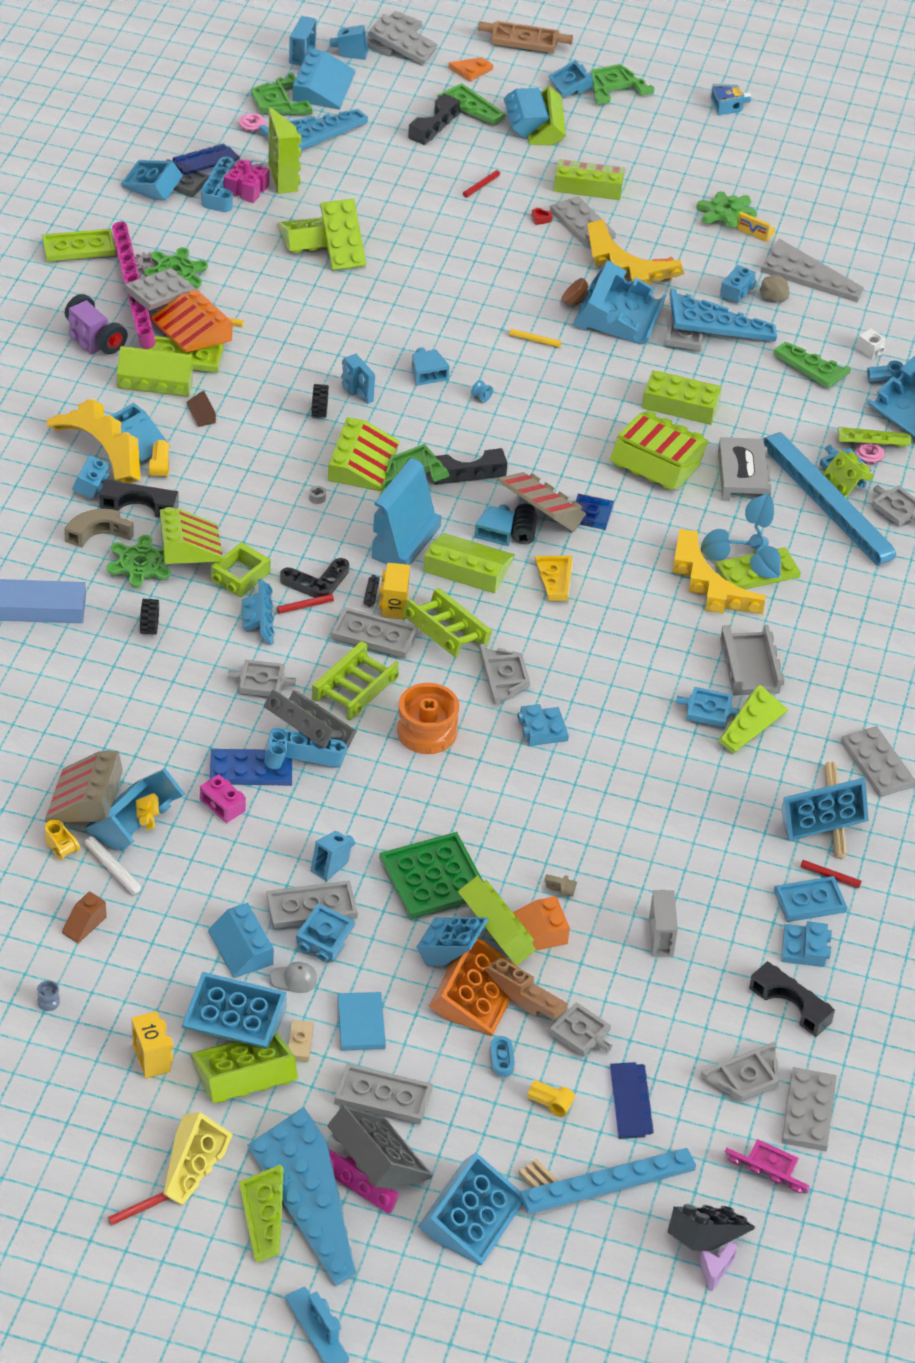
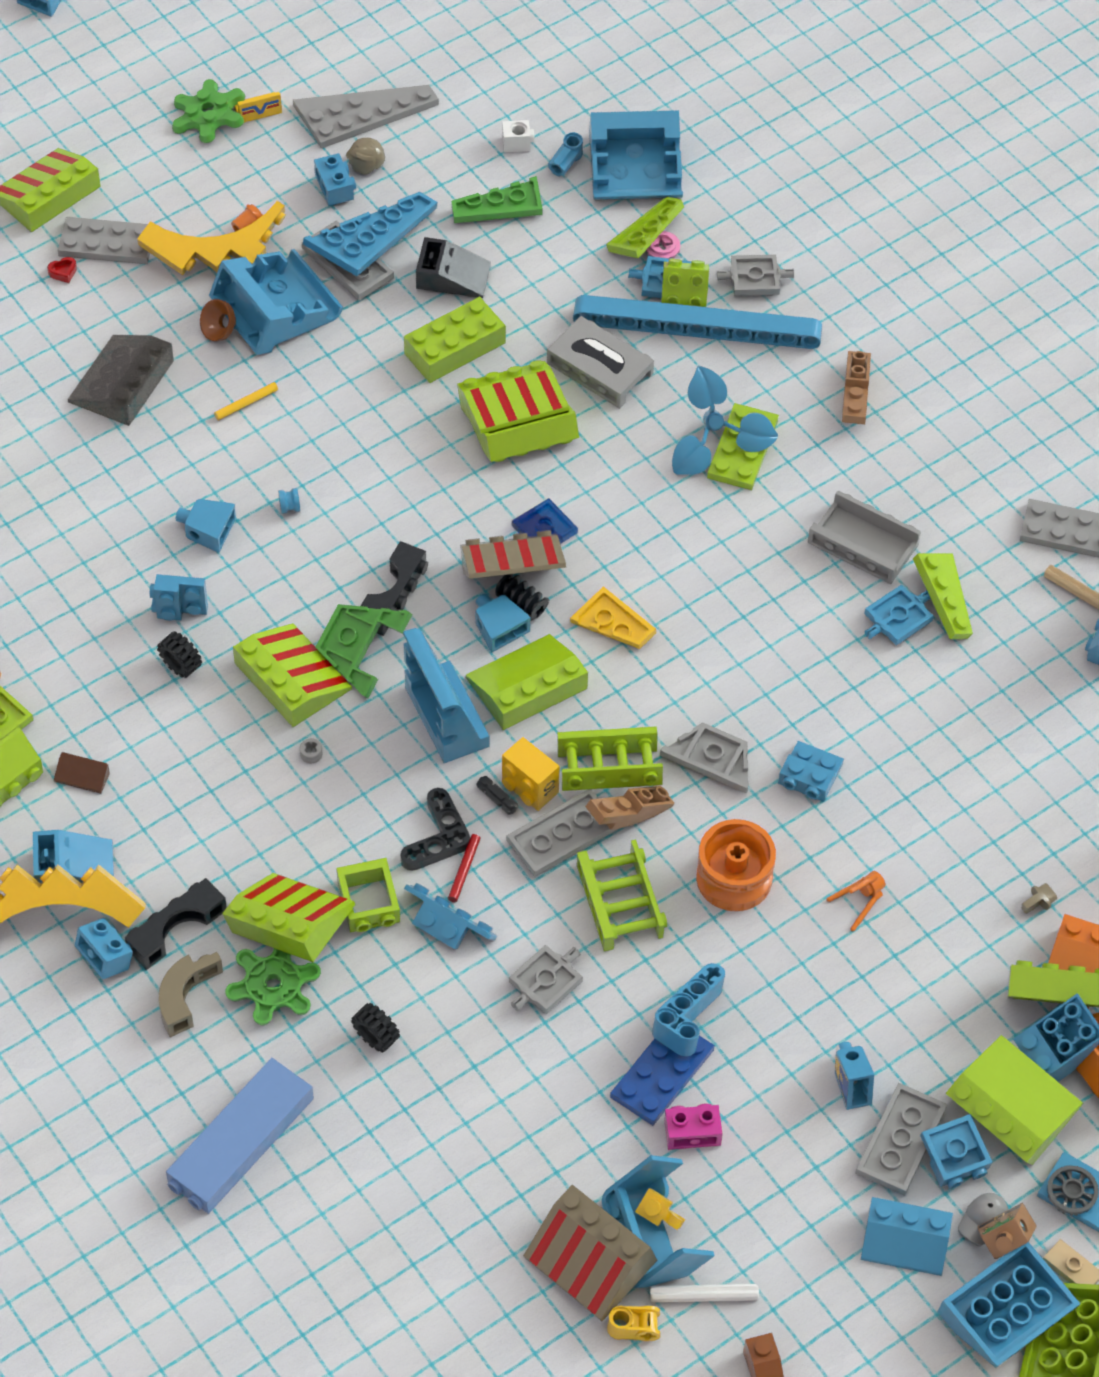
camera: 50 degrees left, 10 degrees up
(159, 463) = (136, 869): yellow piece -> none
(275, 978) = (1005, 1232): none -> medium nougat torso
(309, 718) = (655, 972): dark grey fence -> none
(353, 1008) = (1072, 1190): none -> dark grey wheel
(387, 940) = (1014, 1099): none -> lime slope
(420, 651) = (630, 809): none -> medium nougat slope
(430, 873) = (942, 1002): green plate -> none
(485, 795) = (869, 886): none -> orange plant
(493, 281) = (123, 376): none -> clear smoke slope
(705, 580) = (722, 500): yellow arch -> none
(732, 367) = (451, 269): none -> slope
(865, 598) = (856, 387): none -> medium nougat slope

